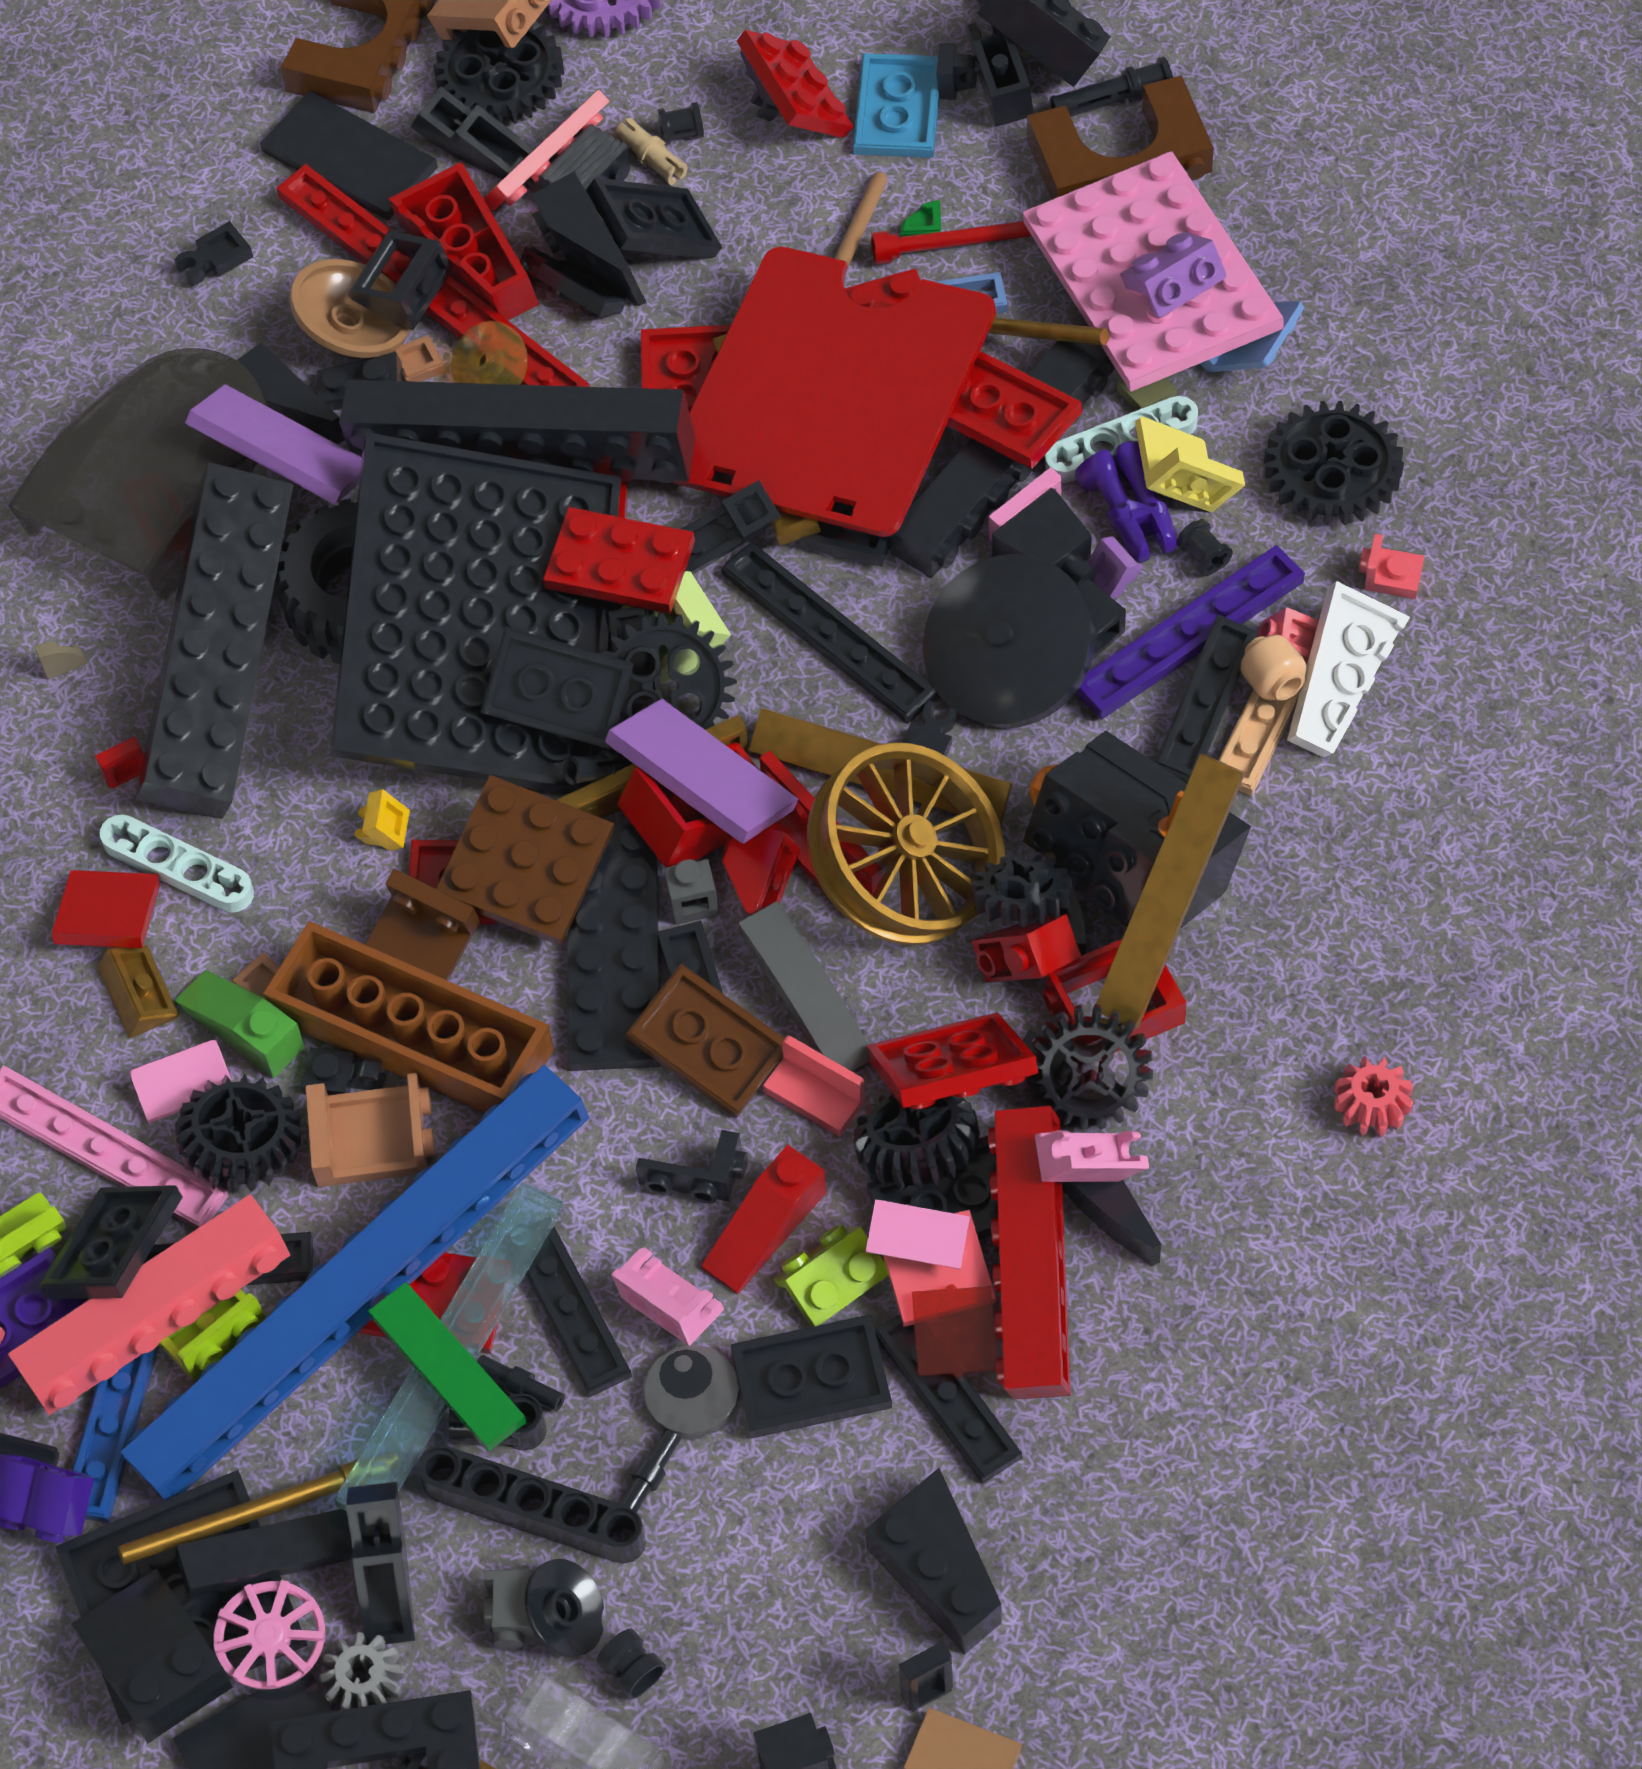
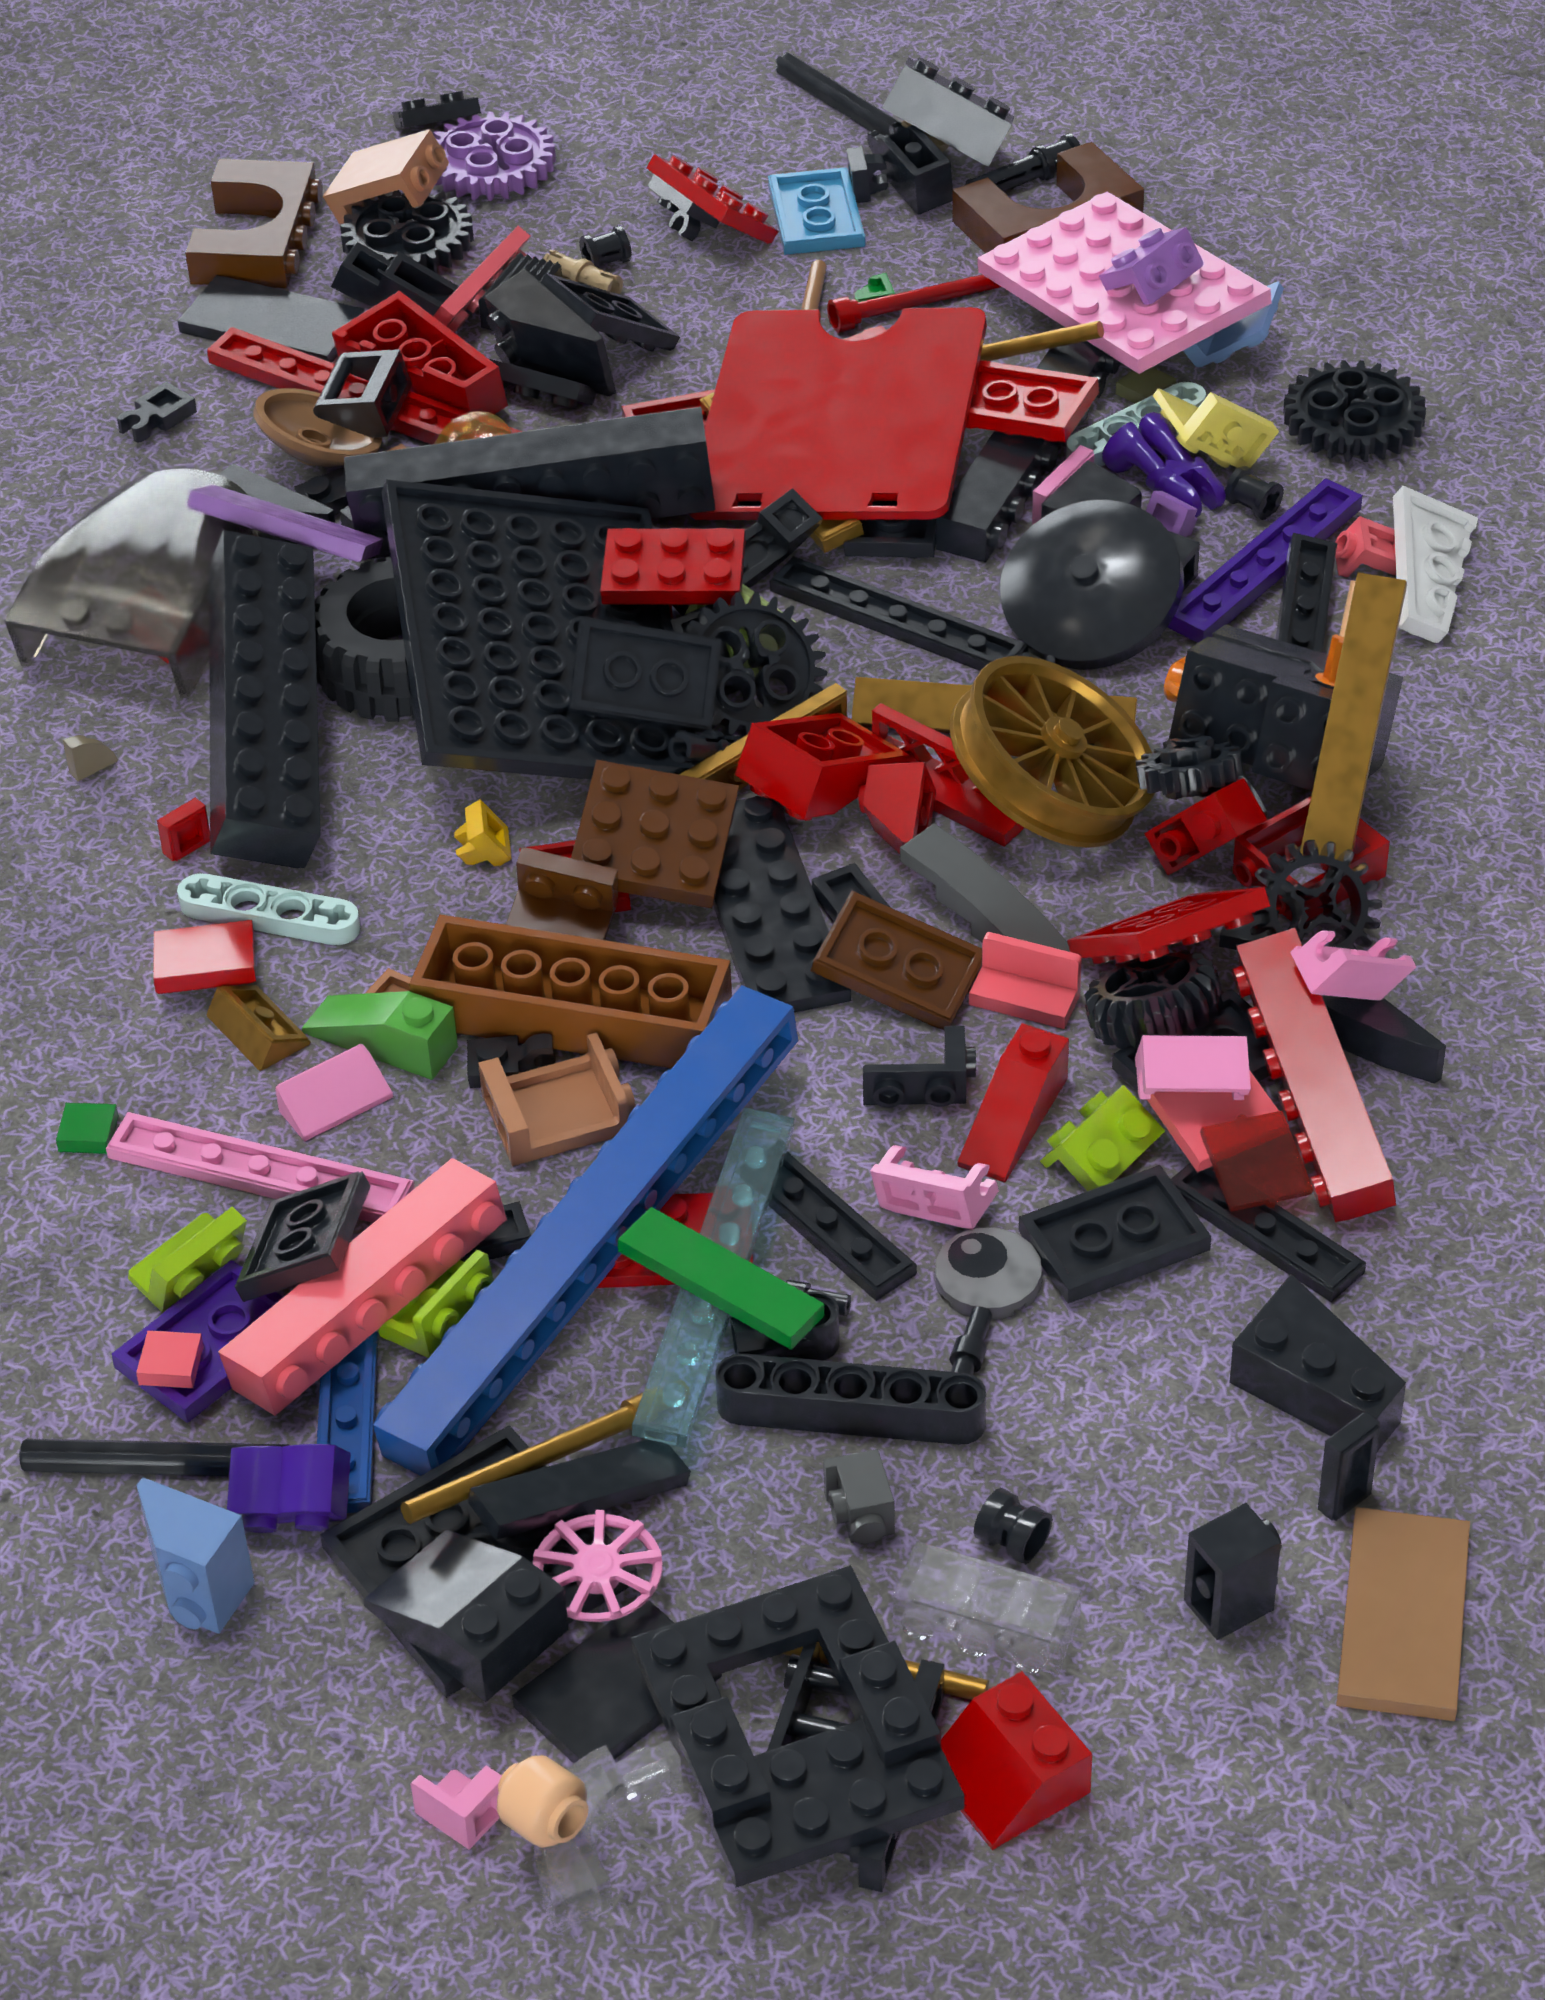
camera: 15 degrees left, 15 degrees down
(216, 1150) = (413, 1121): black gear -> none
(375, 1661) = (709, 1582): light grey gear -> none
(380, 1562) = (704, 1477): black slope -> none
(564, 1608) = (922, 1484): black dish -> none
(689, 882) = (833, 827): dark grey brick -> none
(701, 770) = (819, 722): medium lavender tile -> none
(1273, 667) = (1364, 554): light nougat head -> none
(1391, 570) = (1448, 485): coral bracket -> none

